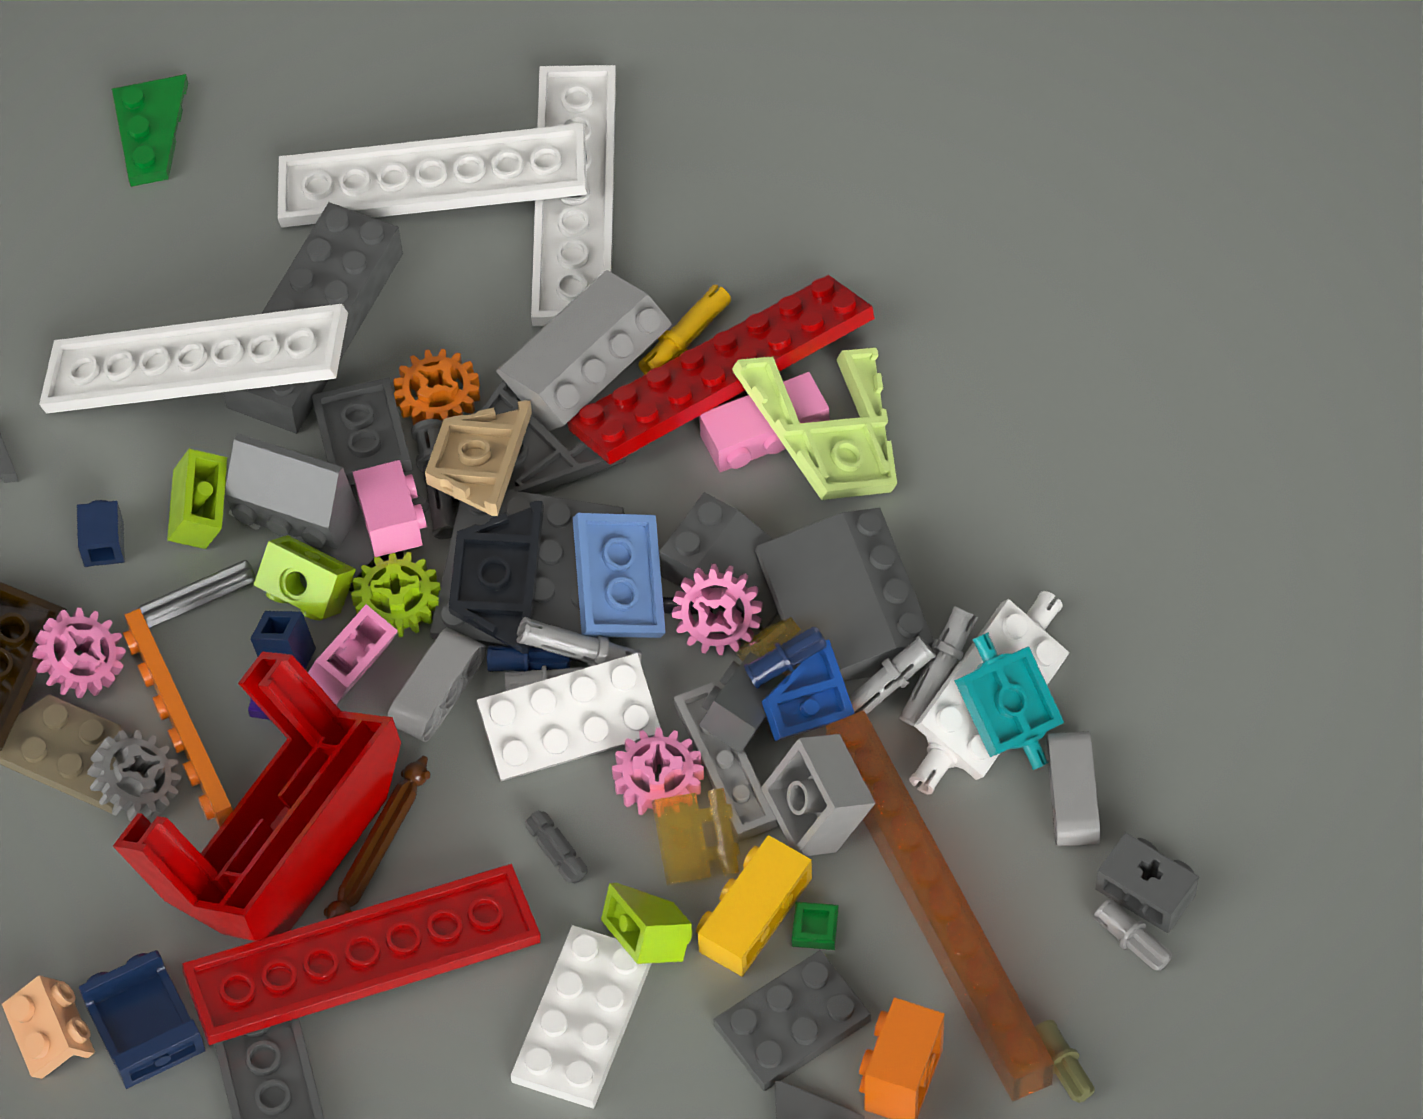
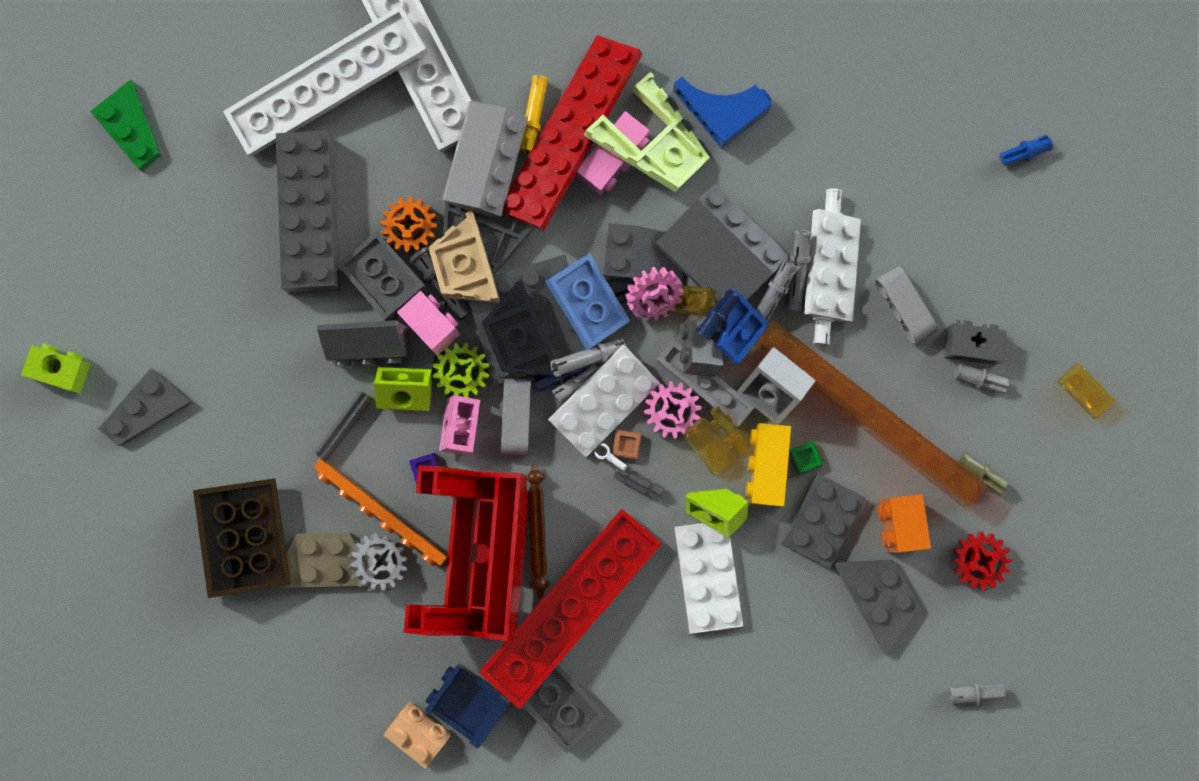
camera: 30 degrees left, 25 degrees up
(69, 637) = (296, 514): bright pink gear -> none
(100, 533) = (264, 416): dark blue brick -> none
(194, 359) = (259, 282): white plate -> none
(197, 498) = (310, 369): lime brick -> none
(284, 634) = (415, 438): dark blue brick -> none
(533, 793) = (611, 458): none -> white hand
(569, 792) = (626, 444): none -> nougat tile
(951, 442) = (724, 115): none -> blue arch
(1009, 701) = (851, 274): teal plate -> none
(1282, 1021) = (1086, 390): none -> clear yellow plate
(1361, 668) = (1026, 150): none -> blue axle

